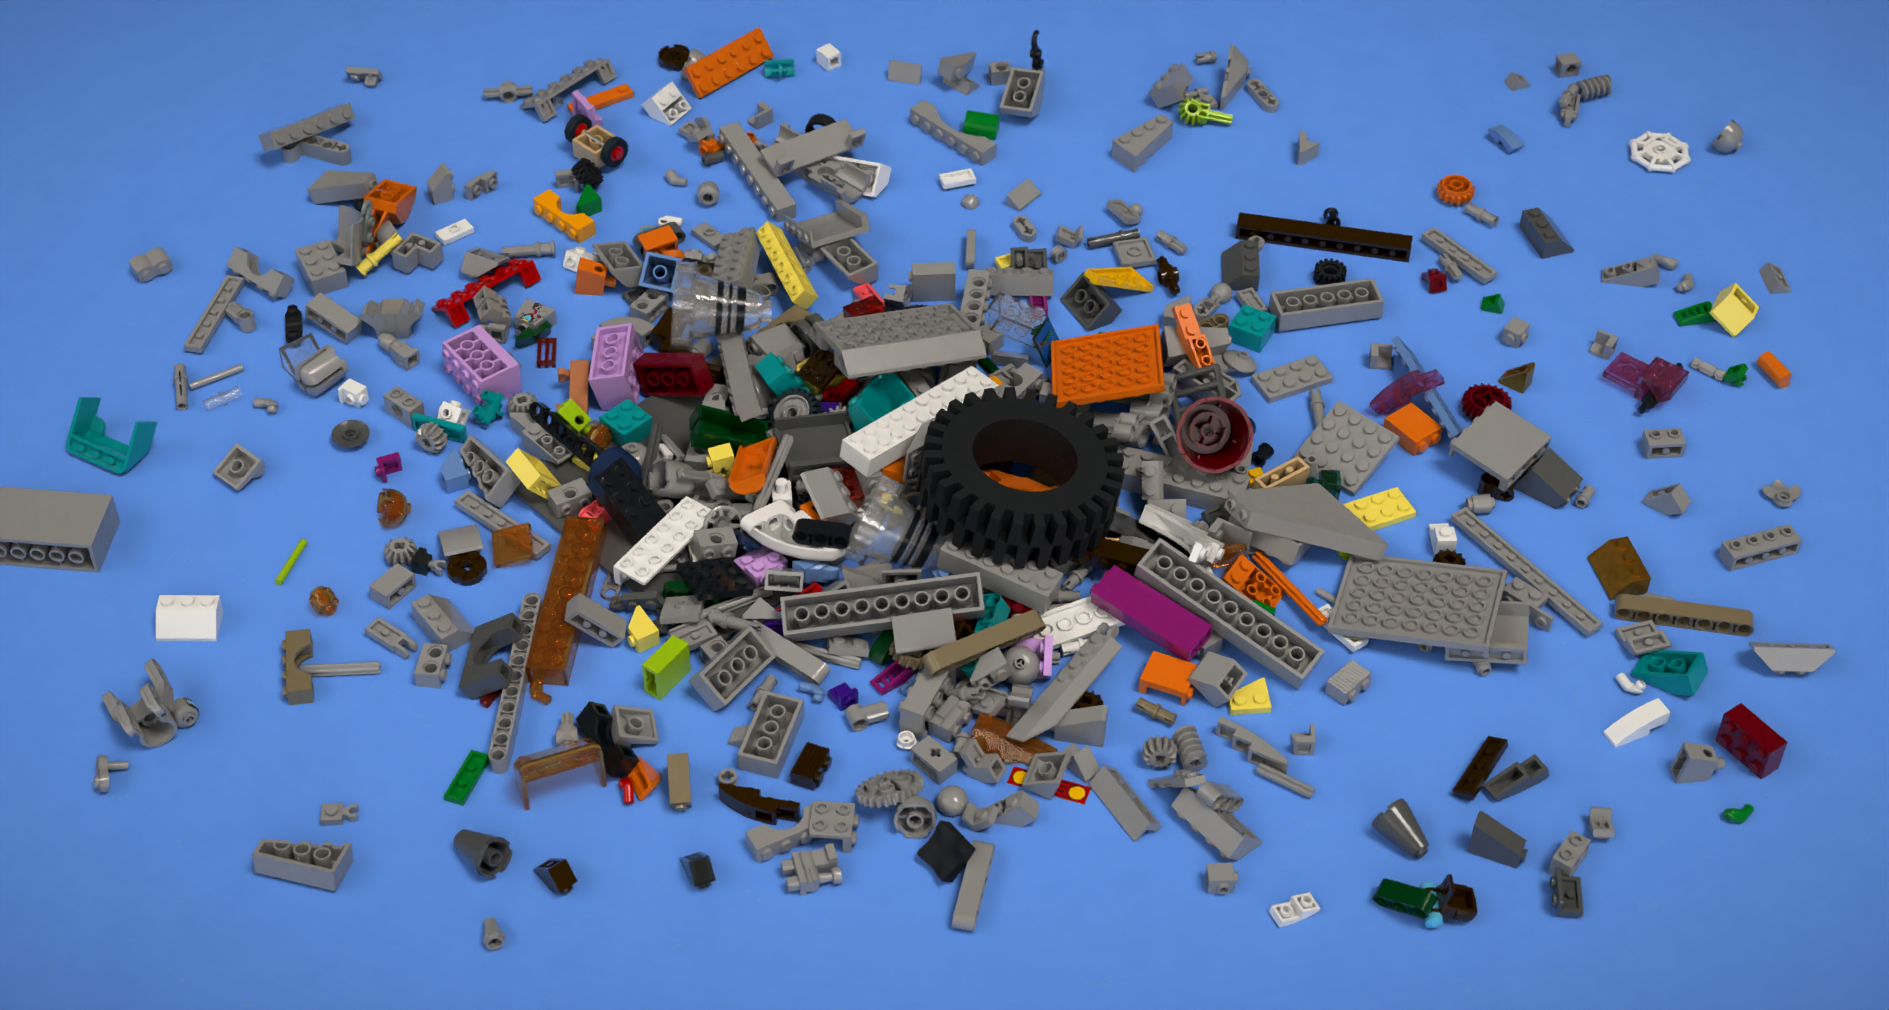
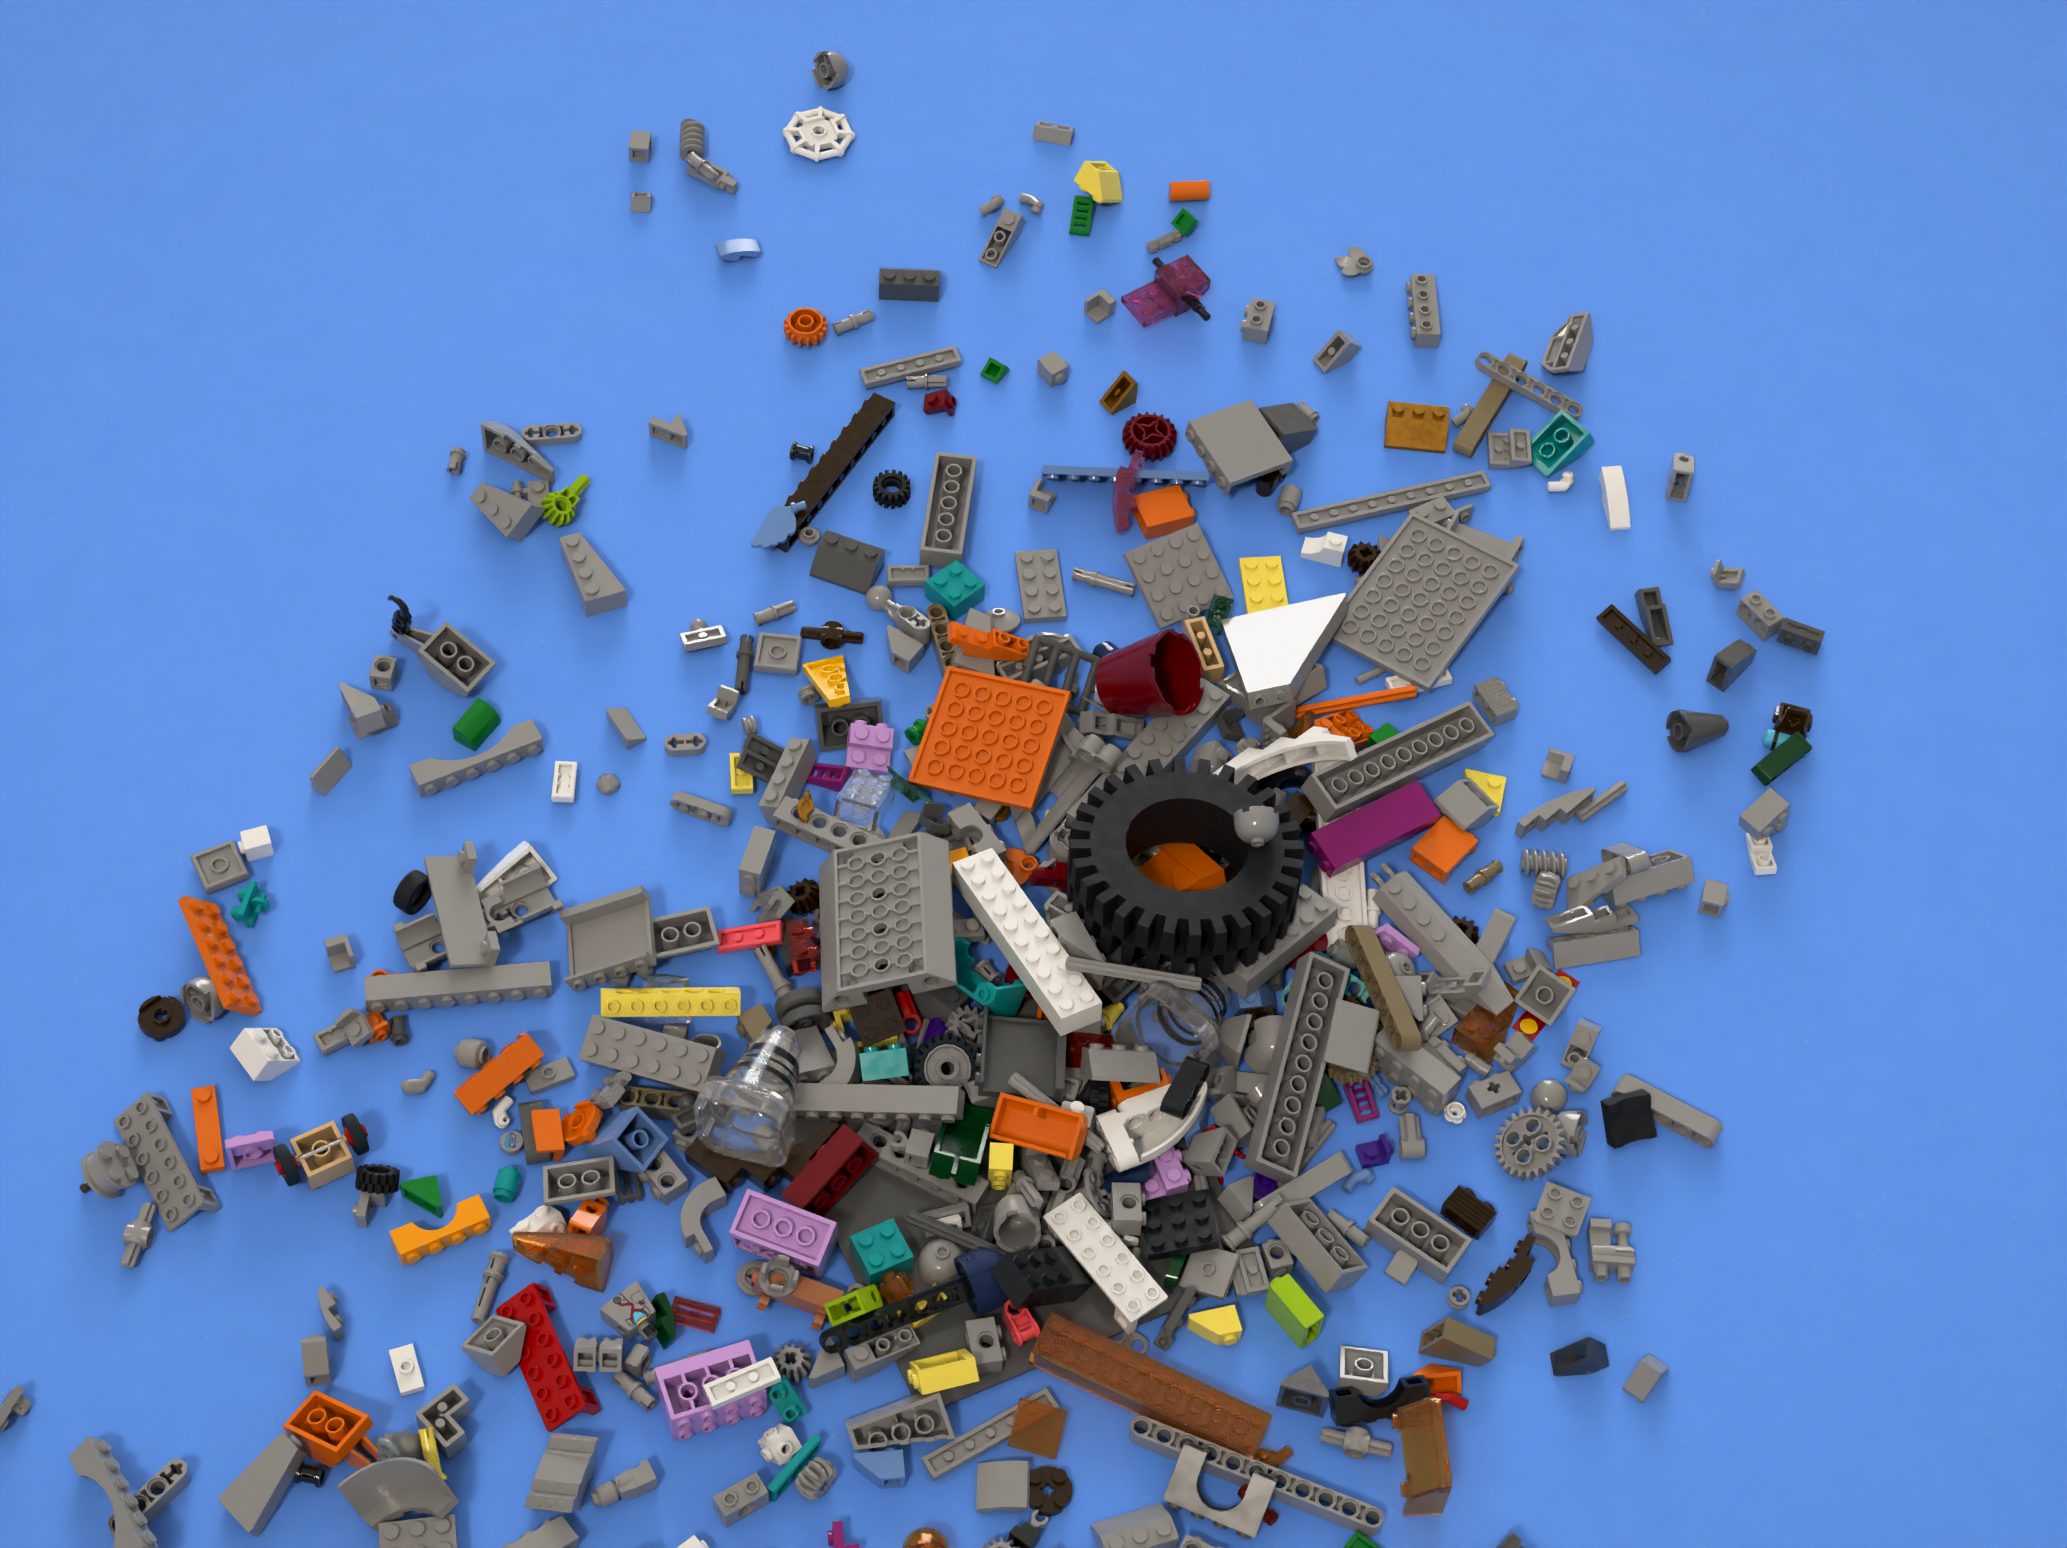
camera: 75 degrees left, 10 degrees up
(478, 364) = (742, 1383): none -> white plate
(545, 60) = (108, 1170): none -> light grey wheel
(556, 875) = (1551, 1501): dark brown slope -> none
(564, 277) = (575, 1254): none -> clear orange wedge
(576, 360) = (782, 1266): none -> light grey piece
(595, 620) = (1205, 1363): light grey brick -> none
(597, 684) = (1303, 1393): none -> flat silver slope
(612, 235) = (506, 1184): none -> teal brick
(662, 628) = (1212, 1303): dark grey plate -> none
(696, 205) = (498, 1074): none -> orange wedge
(701, 920) = (1645, 1377): none -> light grey slope
(801, 48) = (219, 866): none -> light grey plate
(898, 694) = (1397, 1098): none -> light grey bush
(906, 473) = (1131, 972): none -> light grey axle
(983, 281) = (805, 807): none -> pearl gold piece
(1018, 360) = (931, 819): none -> dark grey bracket
(1056, 482) = (1256, 825): none -> light grey cylinder
(1072, 316) = (869, 747): none -> lavender plate
(1144, 788) = (1591, 921): none -> light grey slope
(1152, 480) = (1171, 748): light grey brick -> none
(1245, 216) = (778, 526): none -> medium blue animal
(1328, 890) = (1765, 815): none -> light grey brick
(1723, 631) = (1529, 383): none -> light grey beam
(1738, 815) = (1740, 471): green arm -> none
(1751, 741) = (1669, 423): dark red brick -> none

